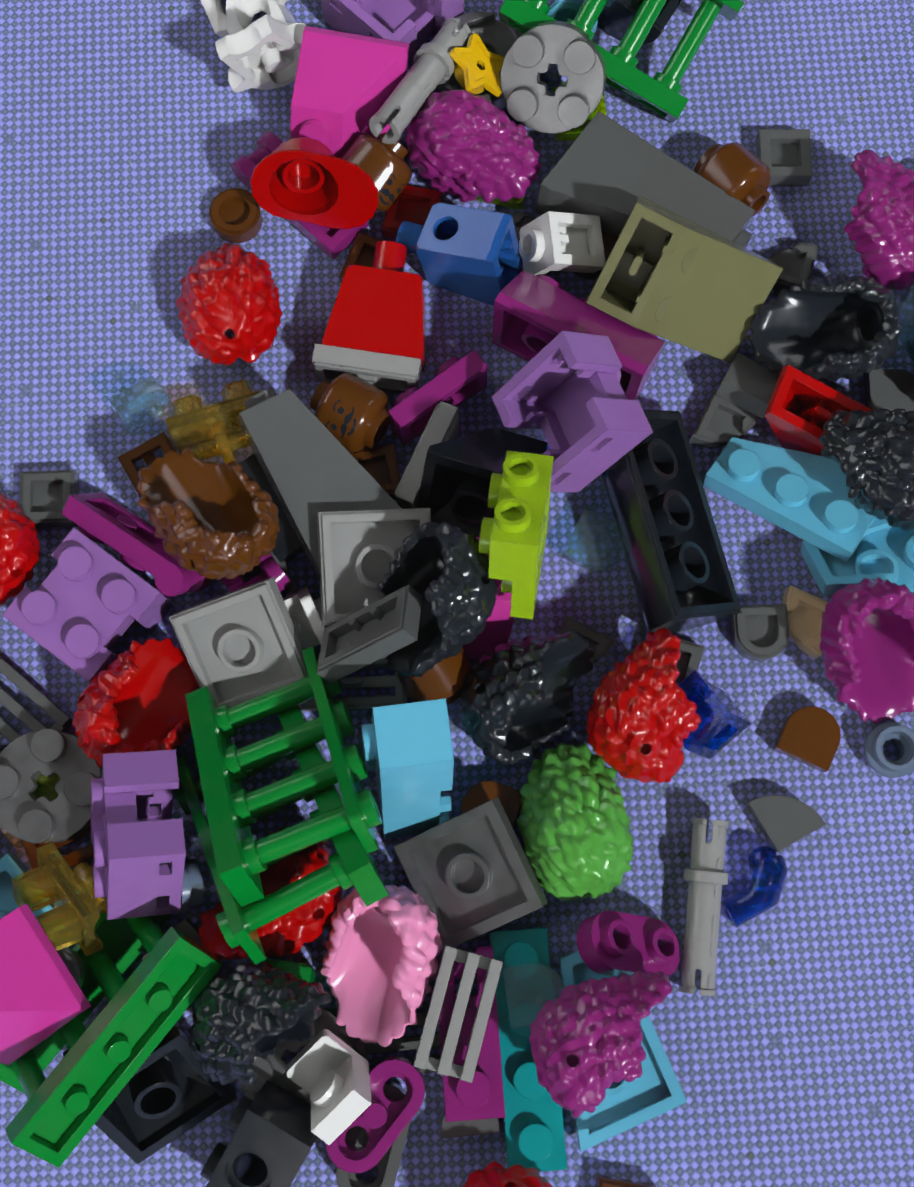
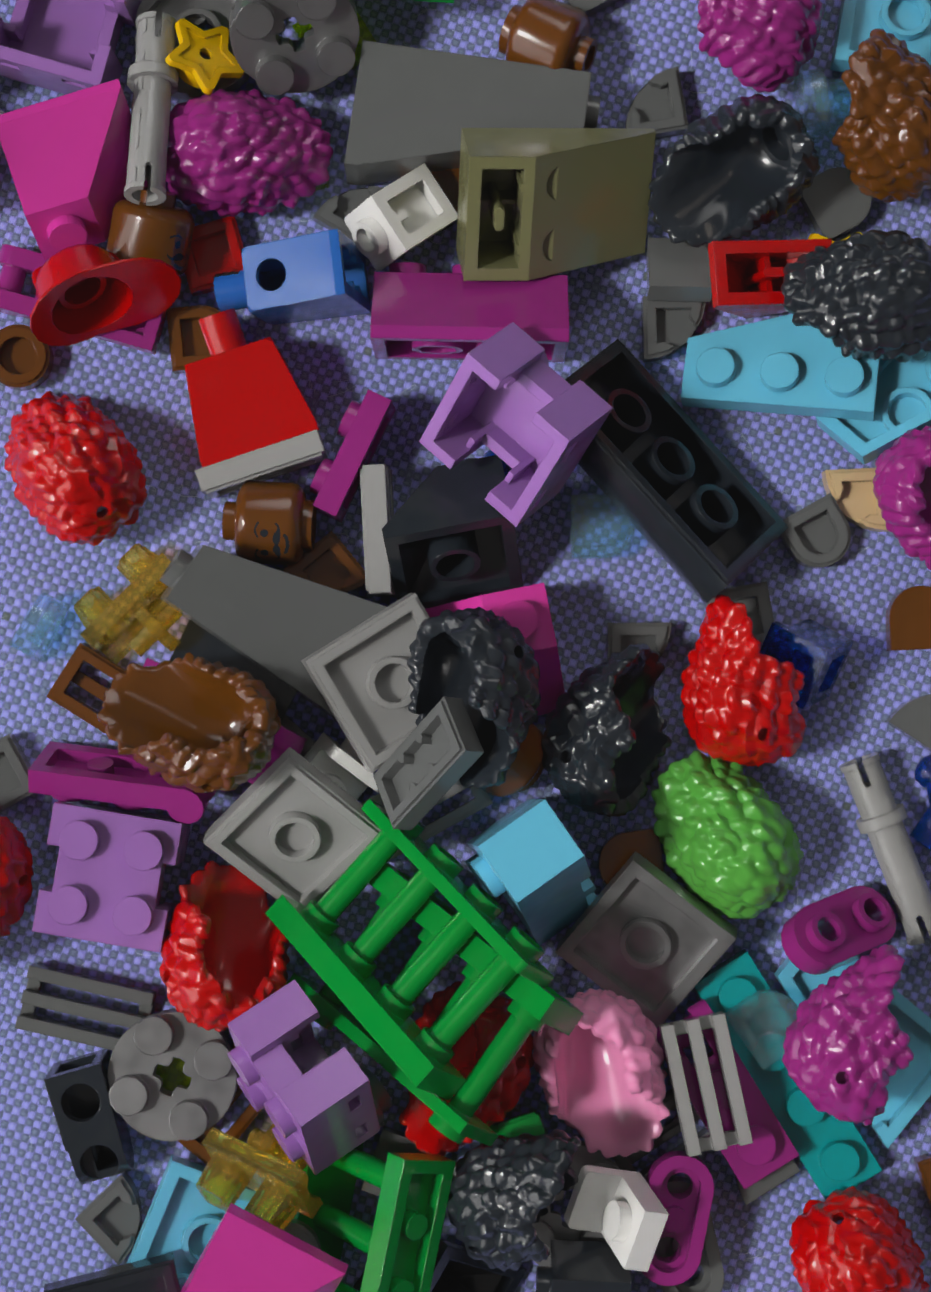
camera: 25 degrees left, 10 degrees up
(519, 527) = (526, 580): lime plate -> none

